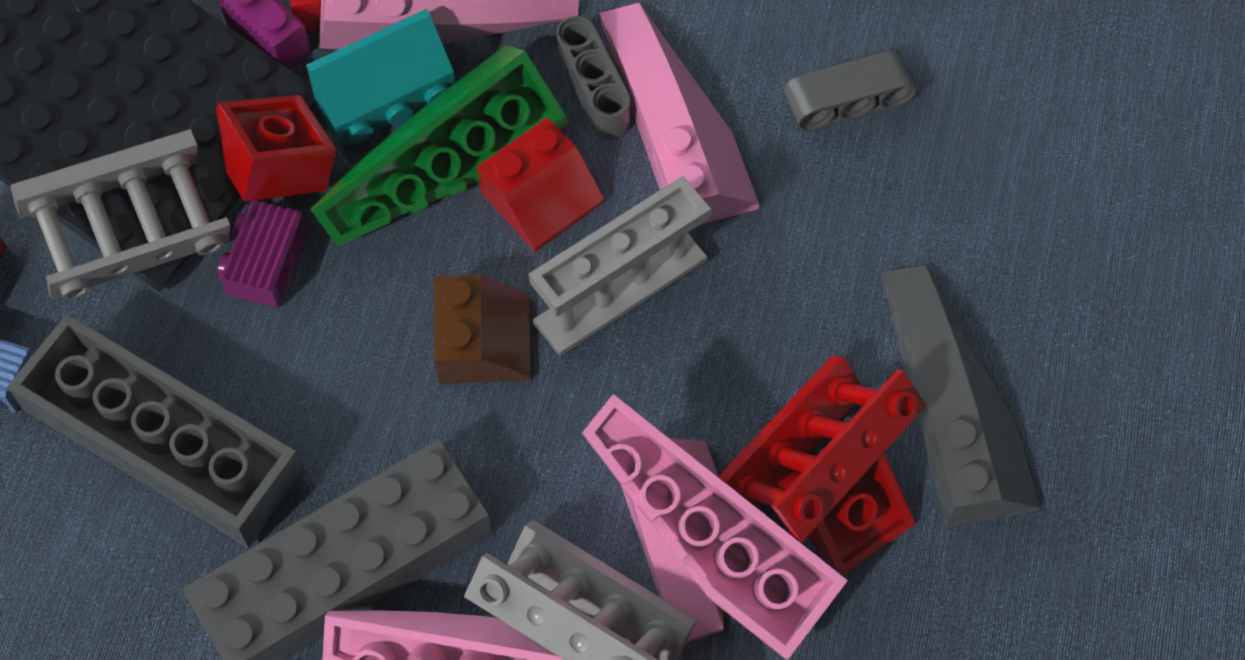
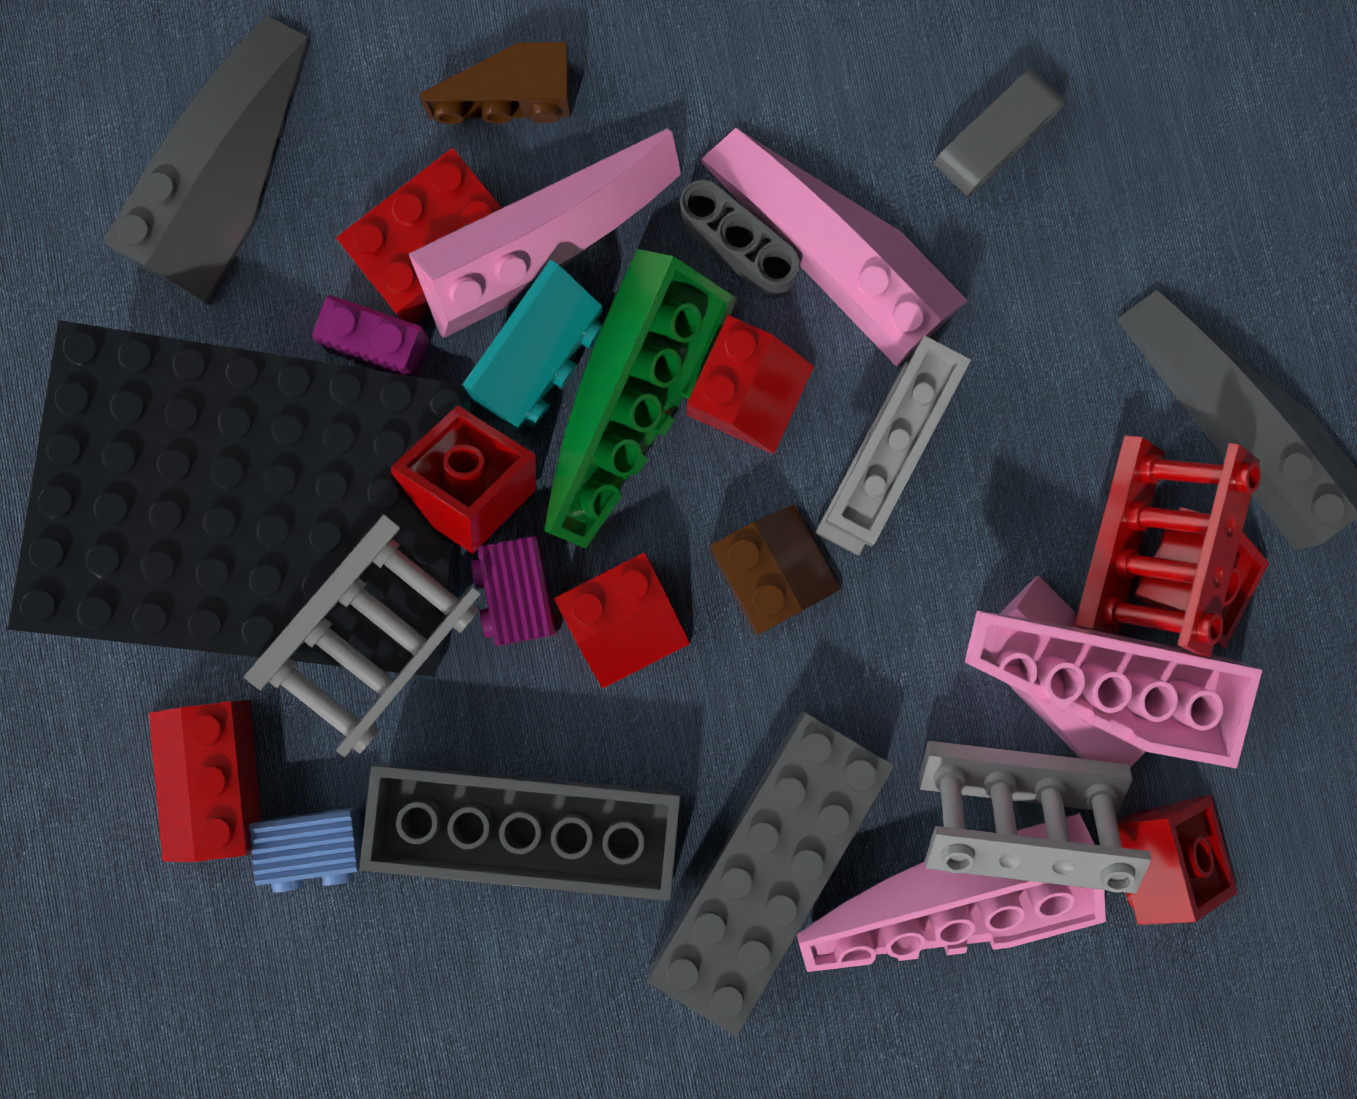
camera: 25 degrees left, 20 degrees up
(334, 311) = (622, 620): none -> red slope

